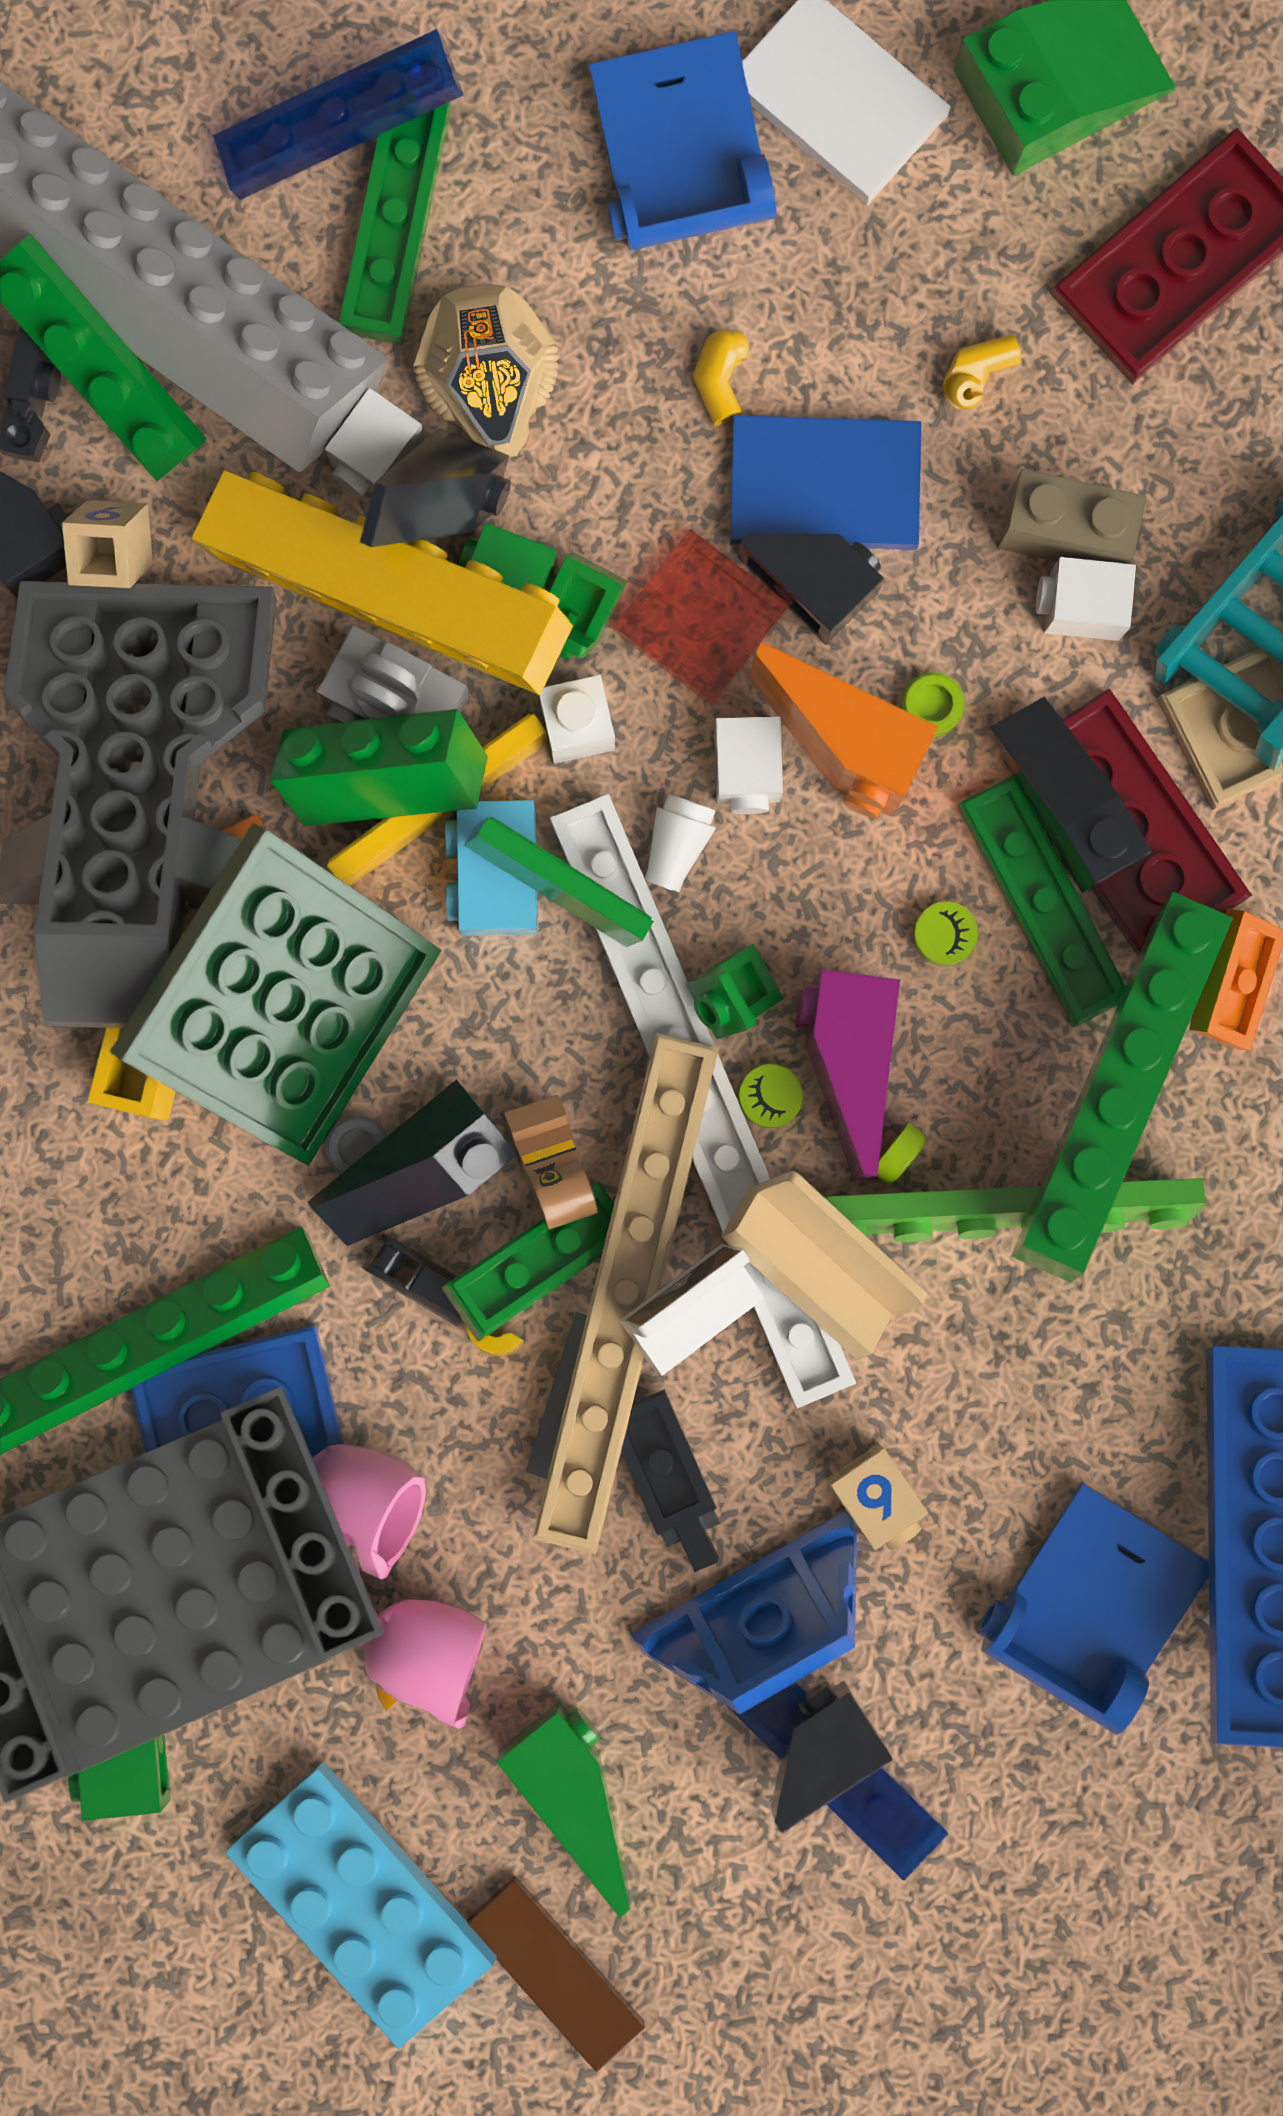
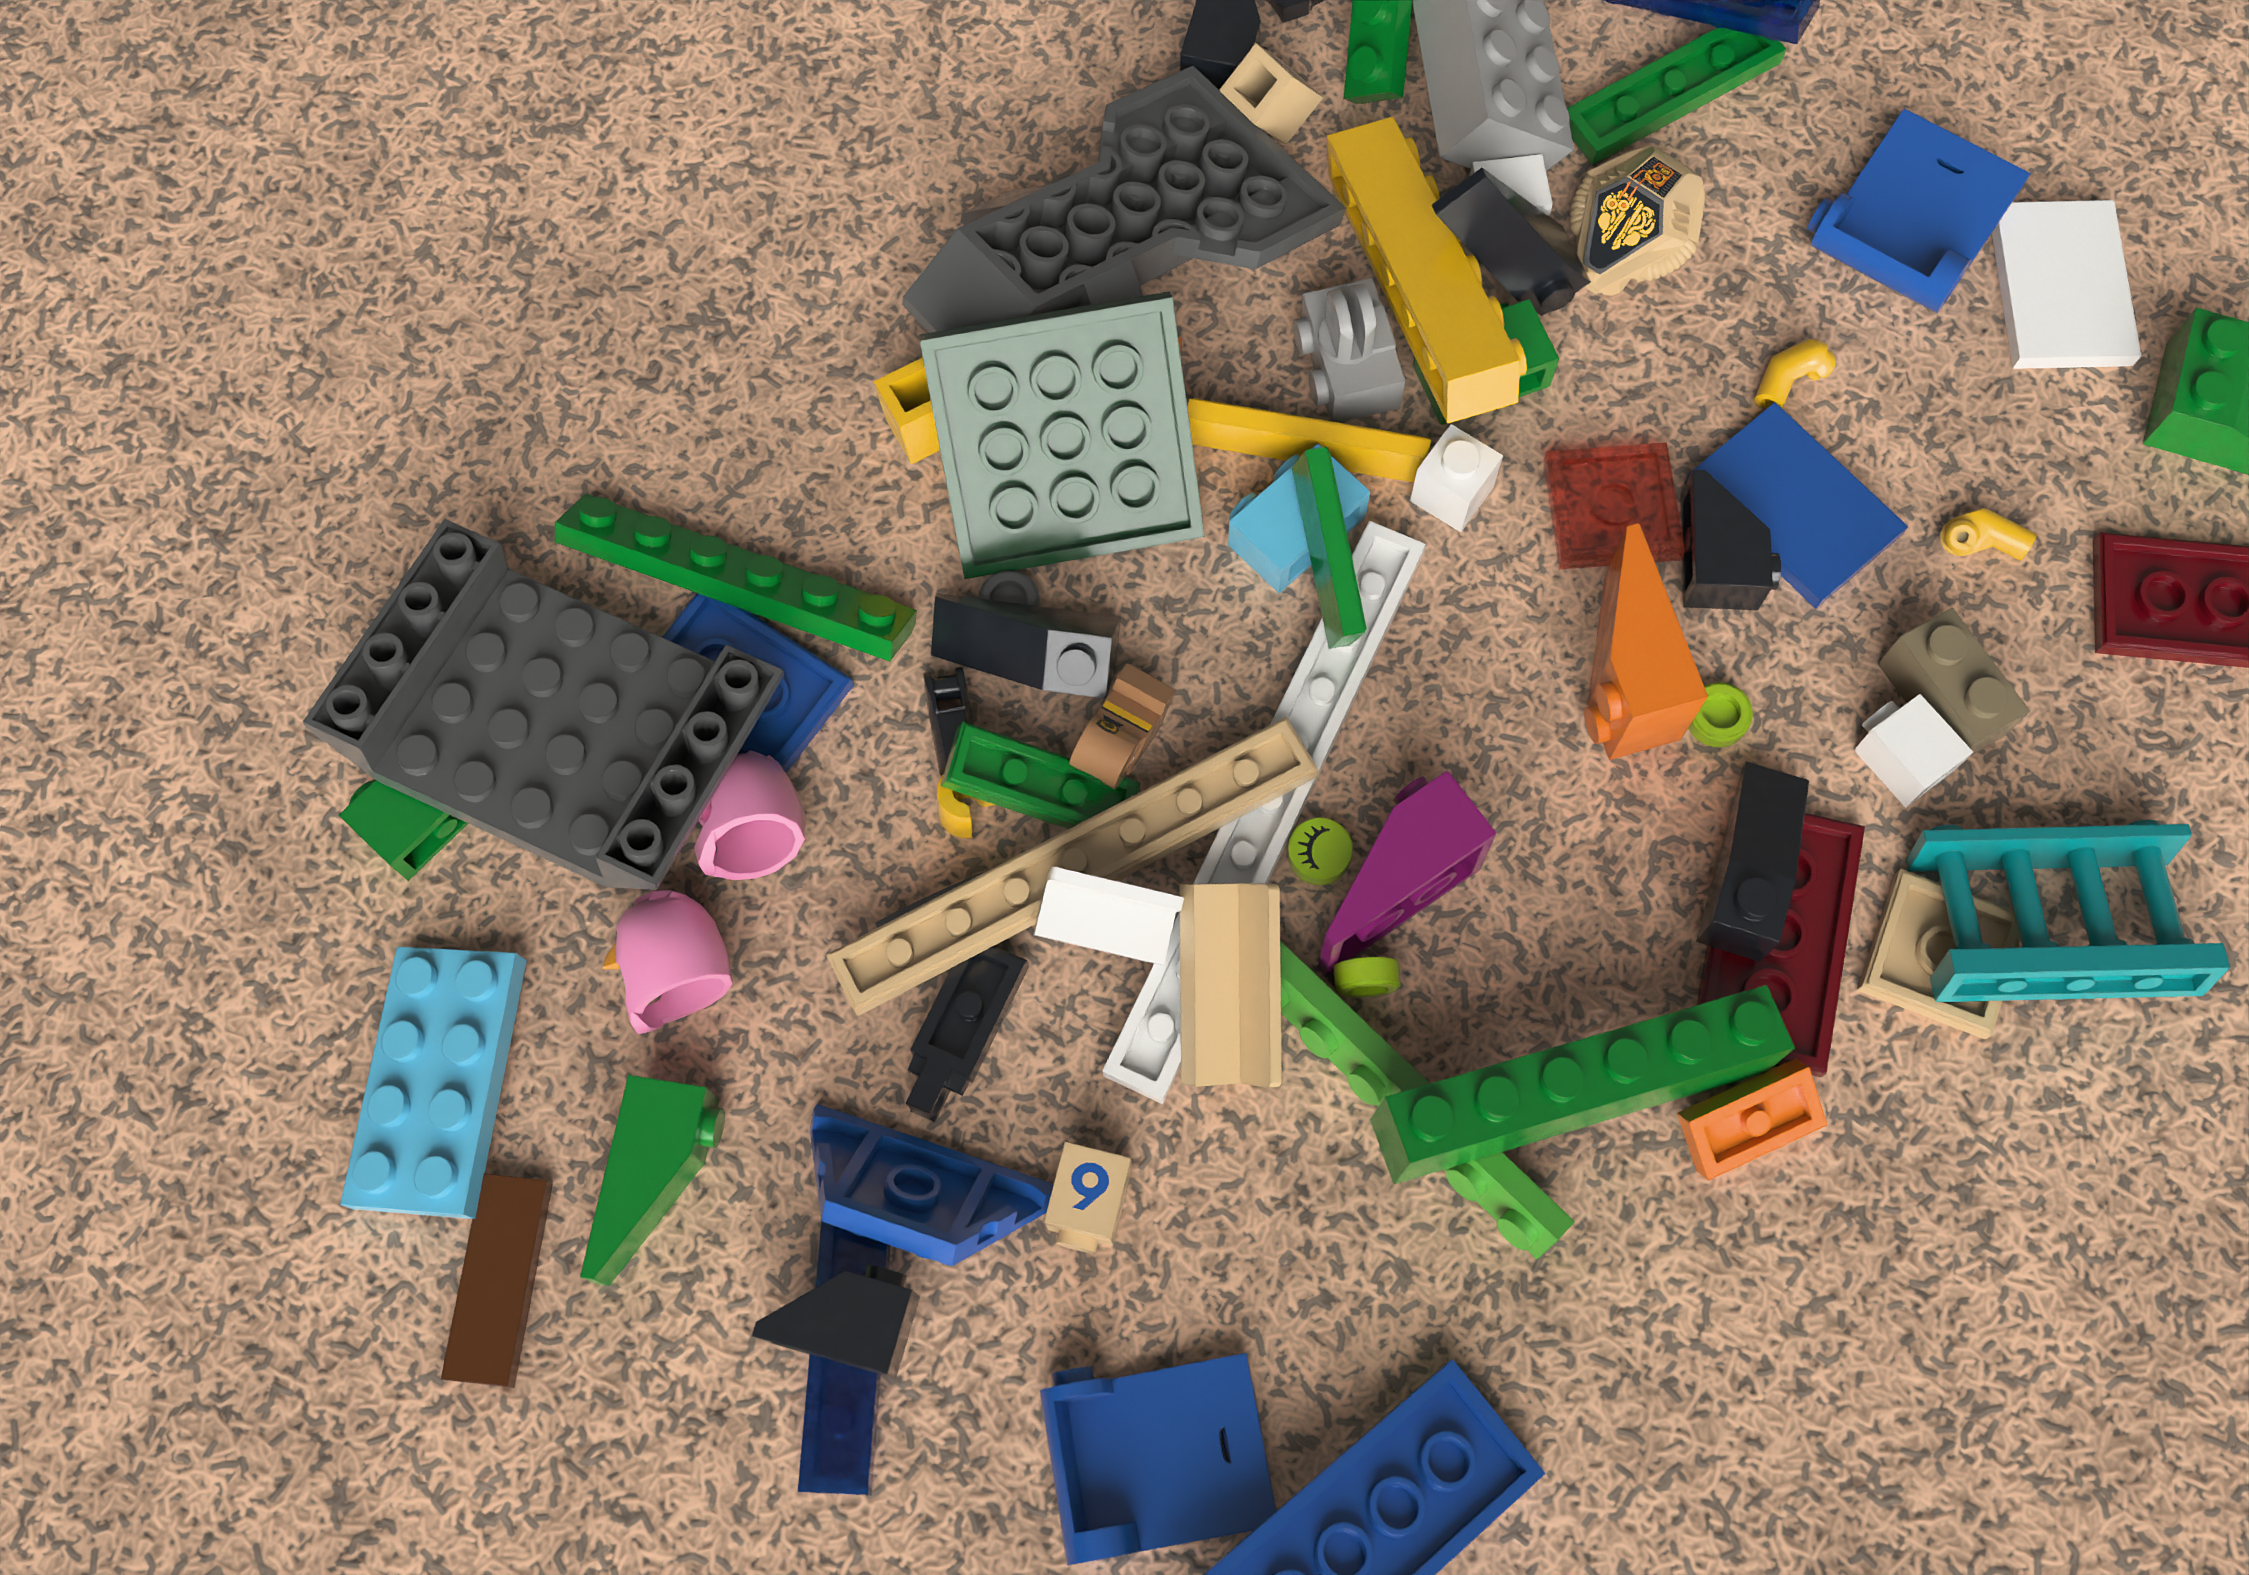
camera: 60 degrees right, 15 degrees down
(380, 768) = (1292, 370): green brick -> none
(587, 600) = (1541, 418): green bracket -> none
(677, 841) = (1440, 622): white cone -> none
(734, 992) = (1370, 751): green bracket -> none
(748, 763) = (1545, 618): white brick -> none
(945, 933) = (1563, 871): lime tile -> none
(1043, 900) = (1662, 915): green tile -> none

